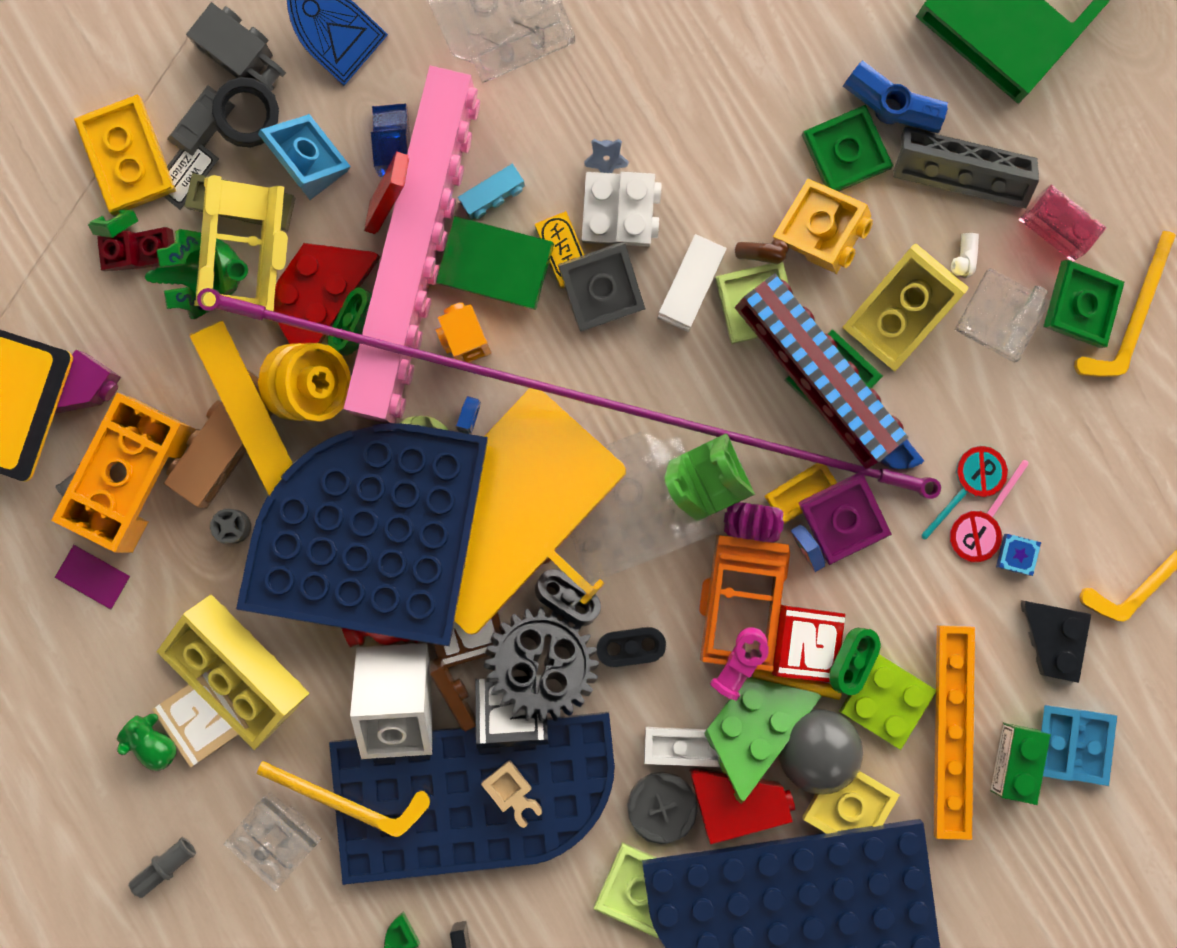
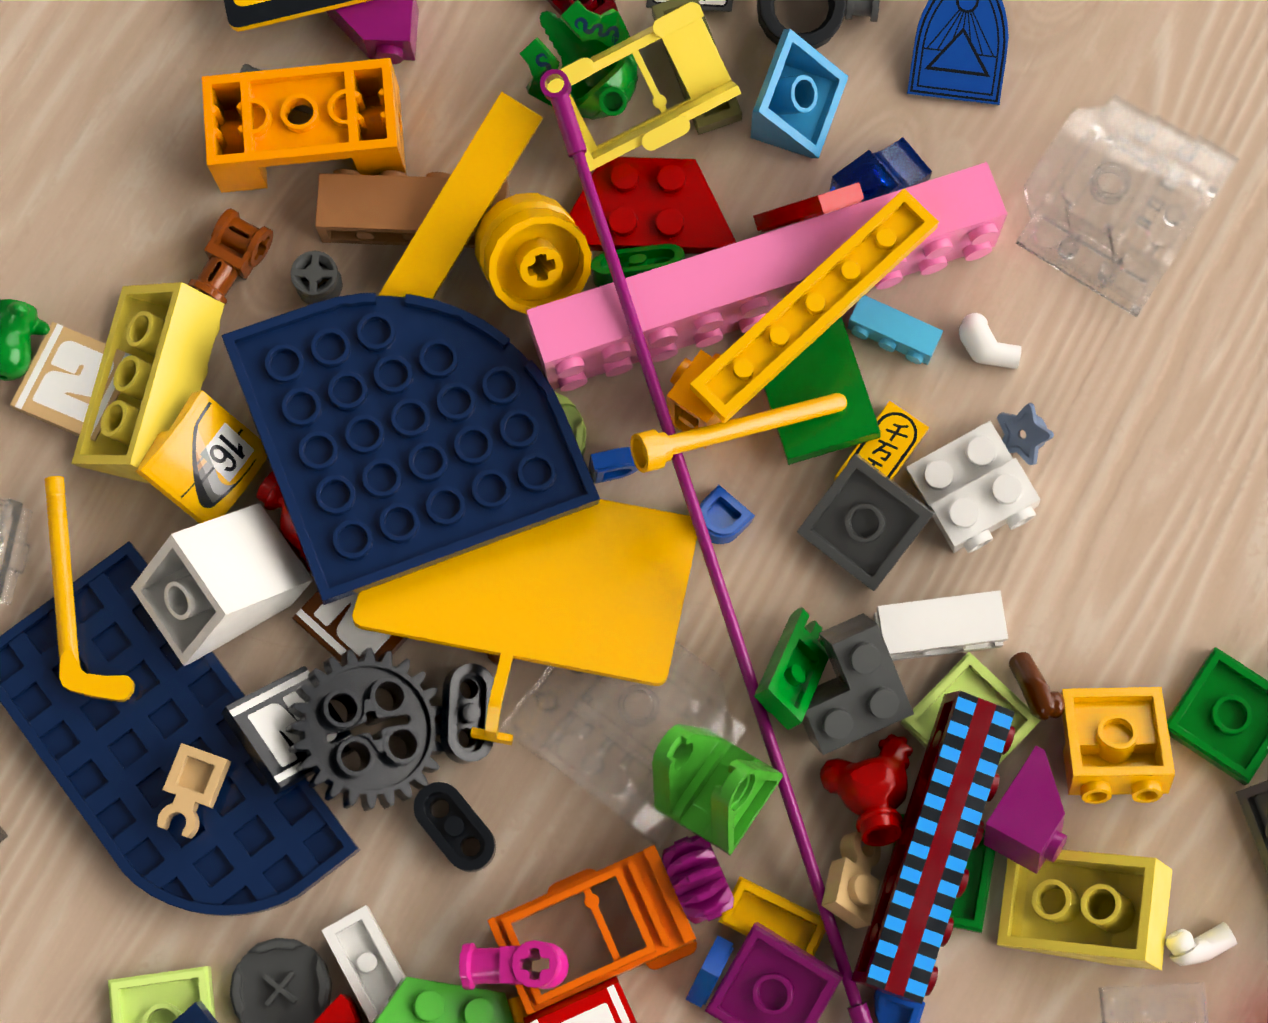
camera: 65 degrees right, 10 degrees down
(92, 576) = (167, 167): magenta sticker -> none
(180, 571) = (232, 253): none -> dark orange connector
(307, 666) = (203, 459): none -> yellow slope
(453, 692) = (271, 646): reddish brown plate -> none
(456, 229) = (813, 305): none -> yellow plate
(485, 385) = (653, 449): none -> yellow piece
(535, 145) = (983, 346): none -> white arm
(542, 368) = (724, 516): none -> blue tile
(666, 385) = (793, 670): none -> green hinge
(705, 357) = (865, 690): none -> dark grey brick
(762, 385) = (873, 789): none -> red animal
(811, 434) = (849, 885): none -> tan plate
(838, 304) = (1029, 816): none -> magenta slope

